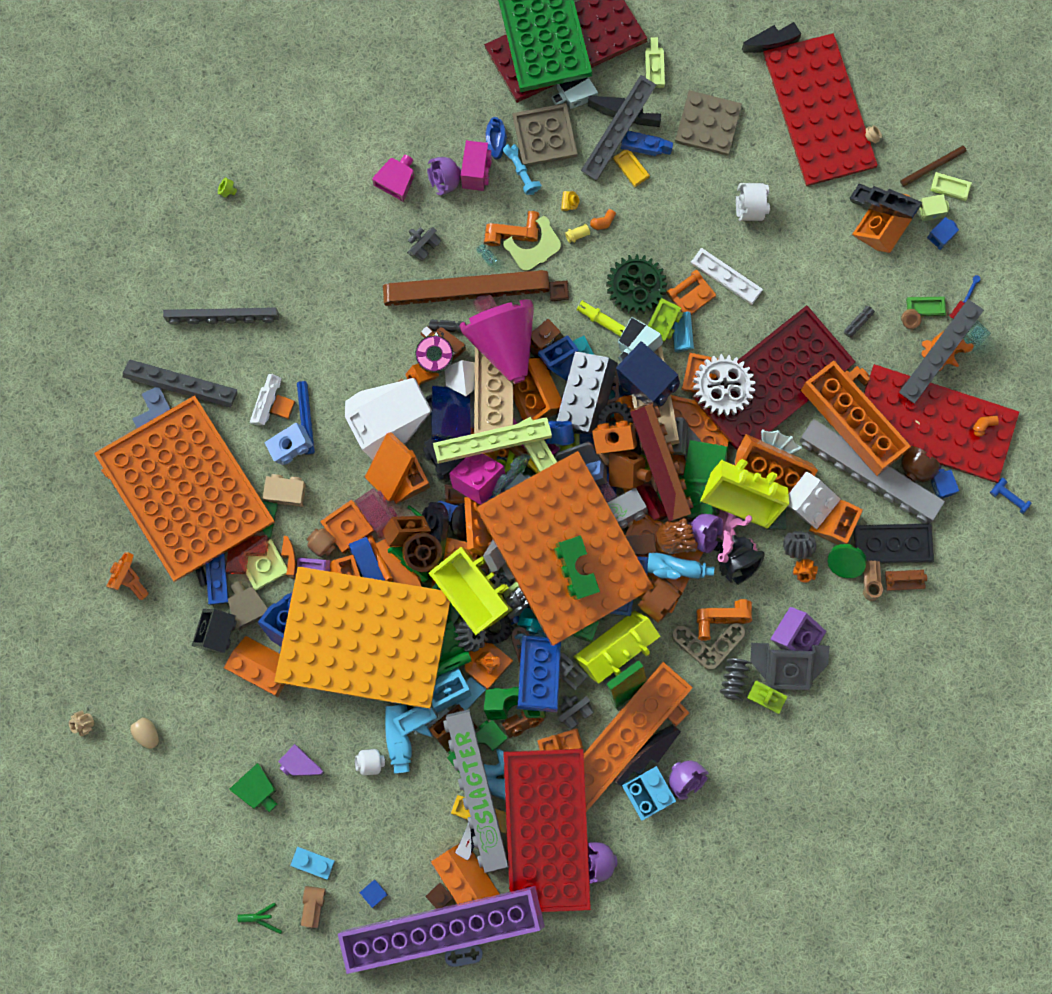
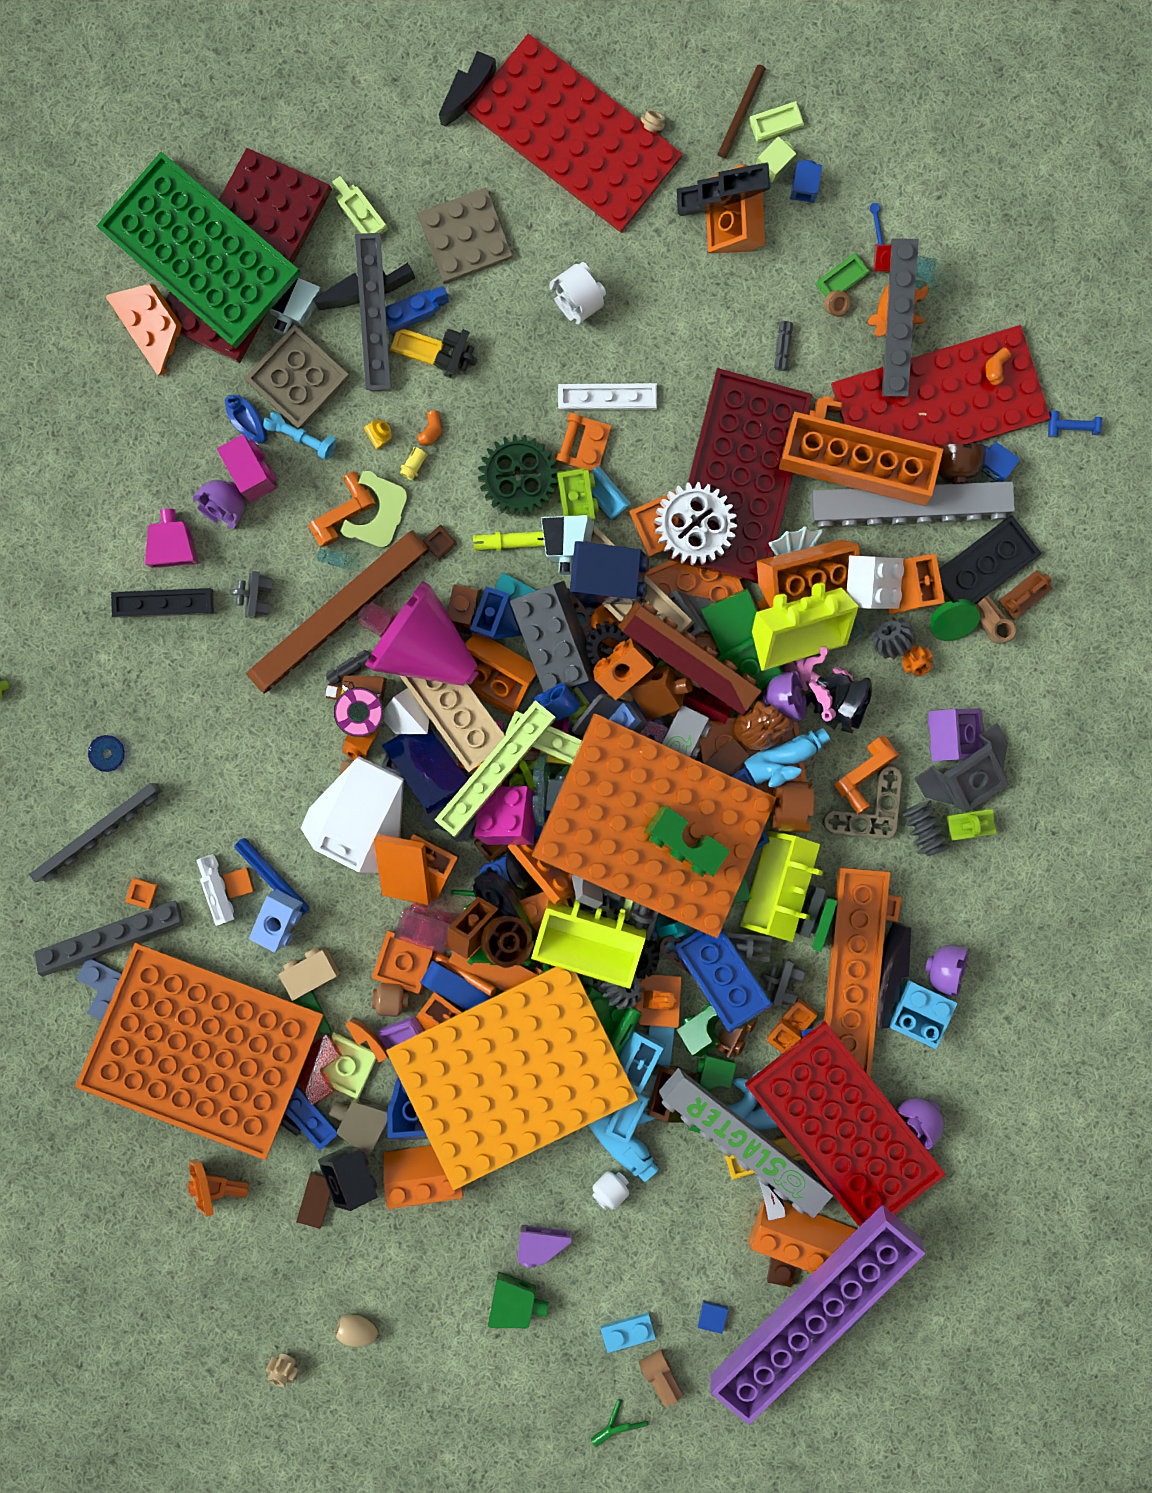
camera: 35 degrees left, 10 degrees up
(180, 634) = (314, 1201): none -> reddish brown tile
(220, 370) = (141, 893): none -> orange plate
(260, 266) = (96, 750): none -> clear blue piece
(364, 209) = (162, 602): none -> black plate
(480, 43) = (148, 322): none -> wing
(657, 180) = (449, 362): none -> pearl dark grey hips

